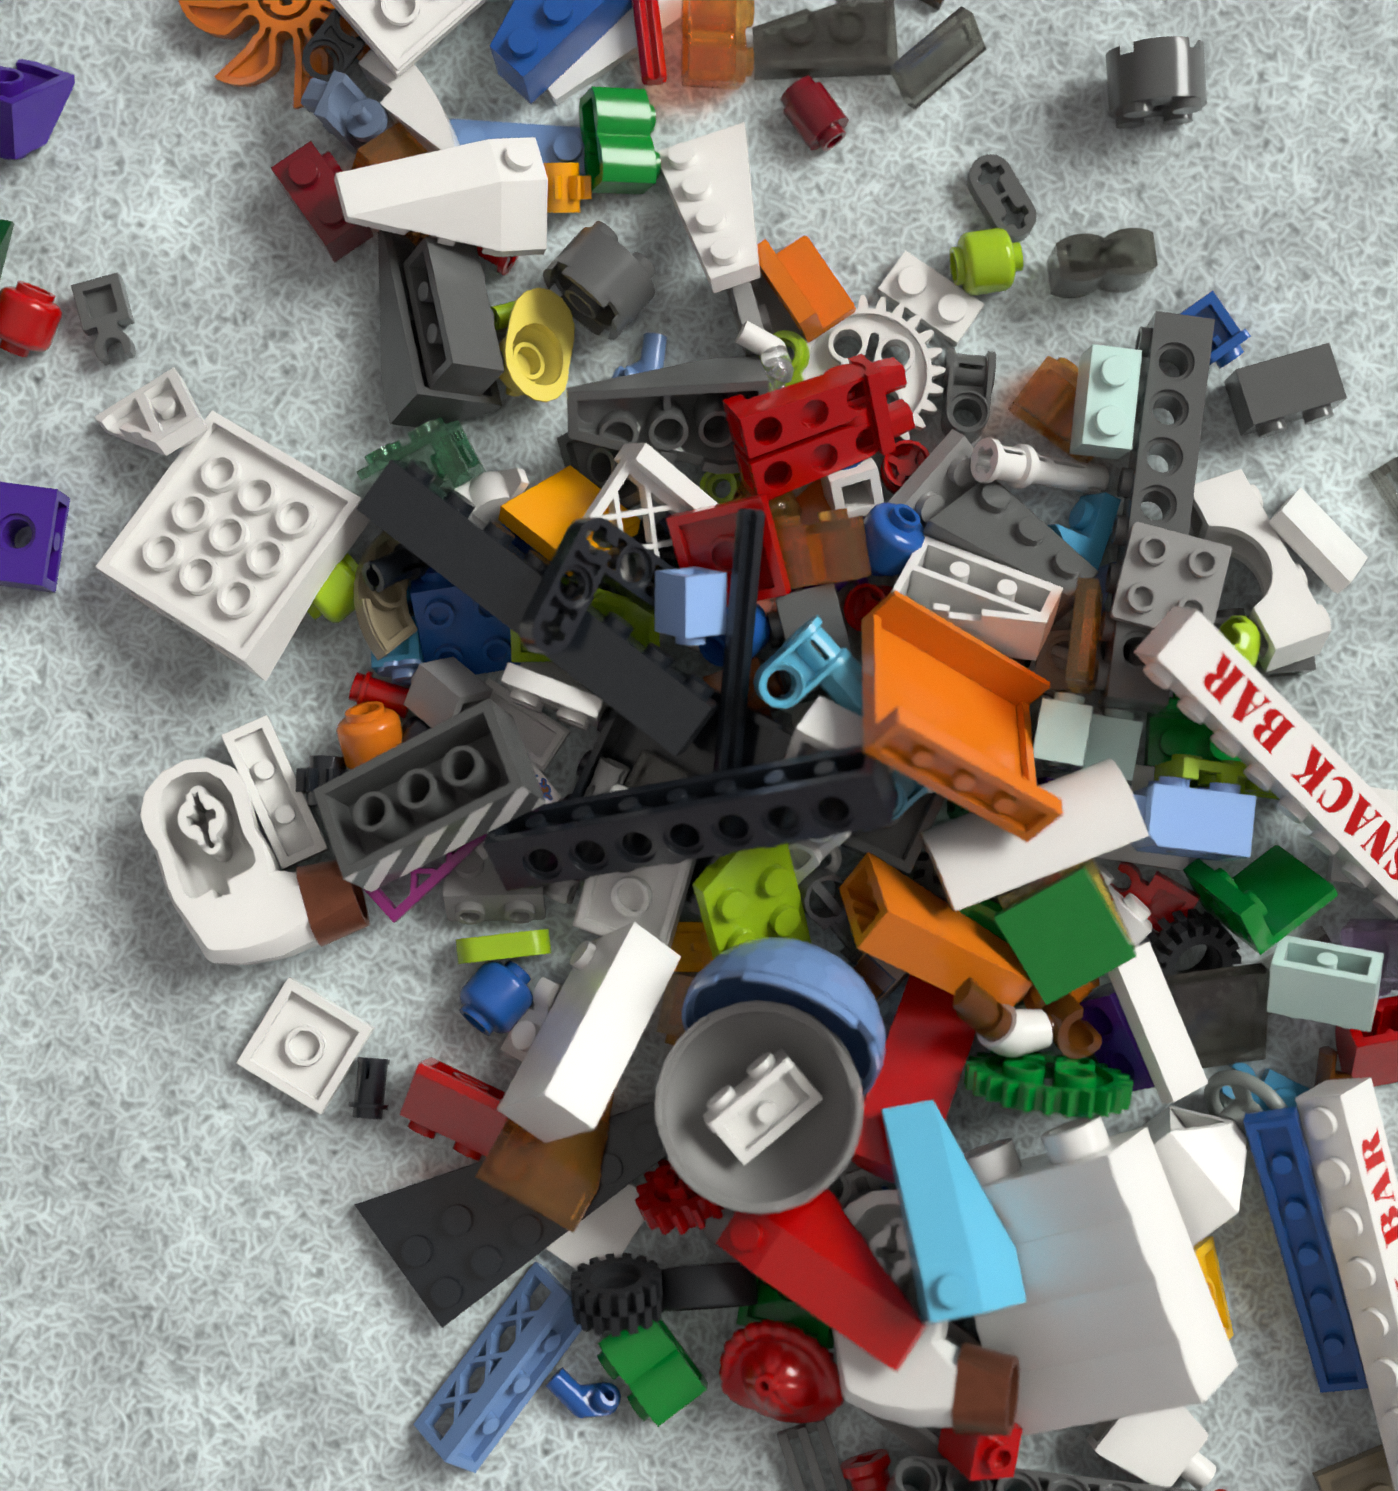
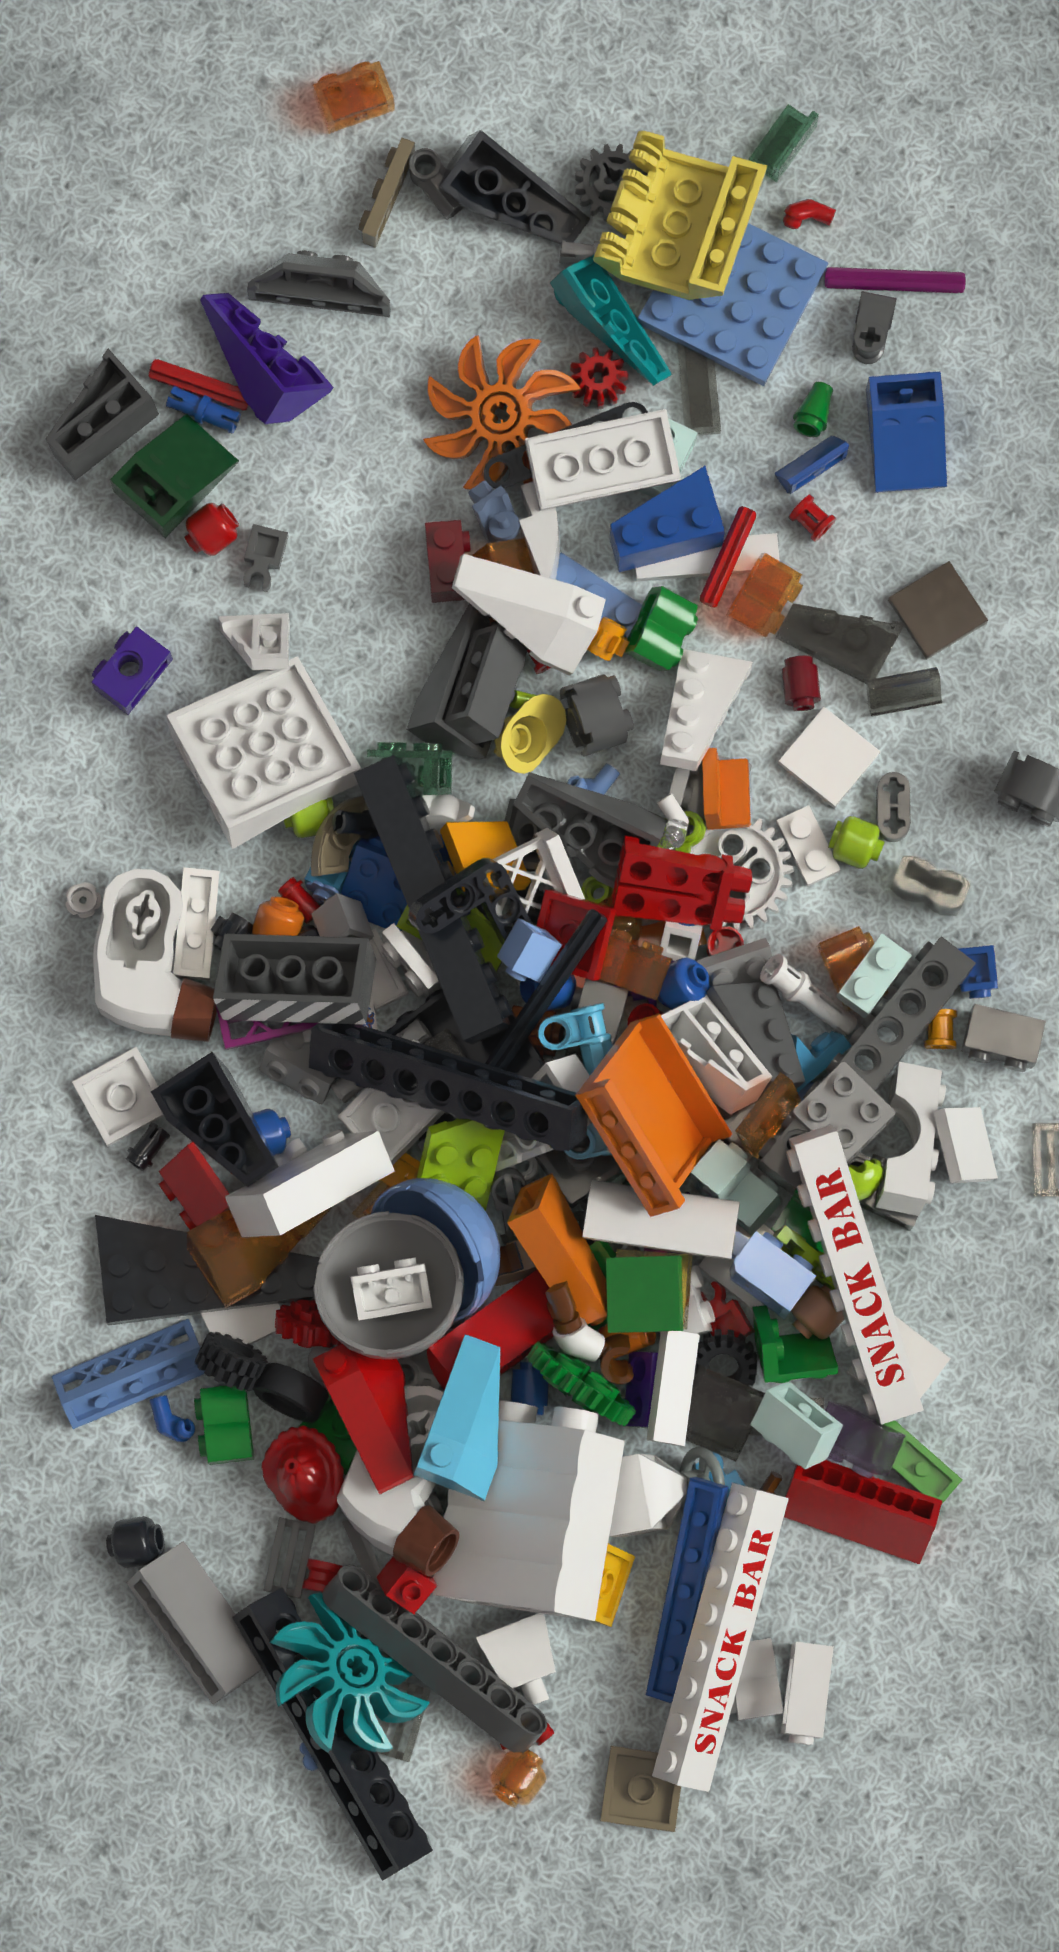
camera: 30 degrees right, 5 degrees down
(113, 843) = (81, 890): none -> white plate
(432, 1013) = (216, 1117): none -> black wedge
(503, 946) = (285, 1105): lime beam -> none
(895, 183) = (829, 757): none -> white tile
(967, 387) = (798, 917): dark grey piece -> none
(980, 1120) = (529, 1387): none -> blue brick
(1214, 428) = (941, 1031): none -> light orange bush
(1270, 836) = (816, 1313): none -> nougat head

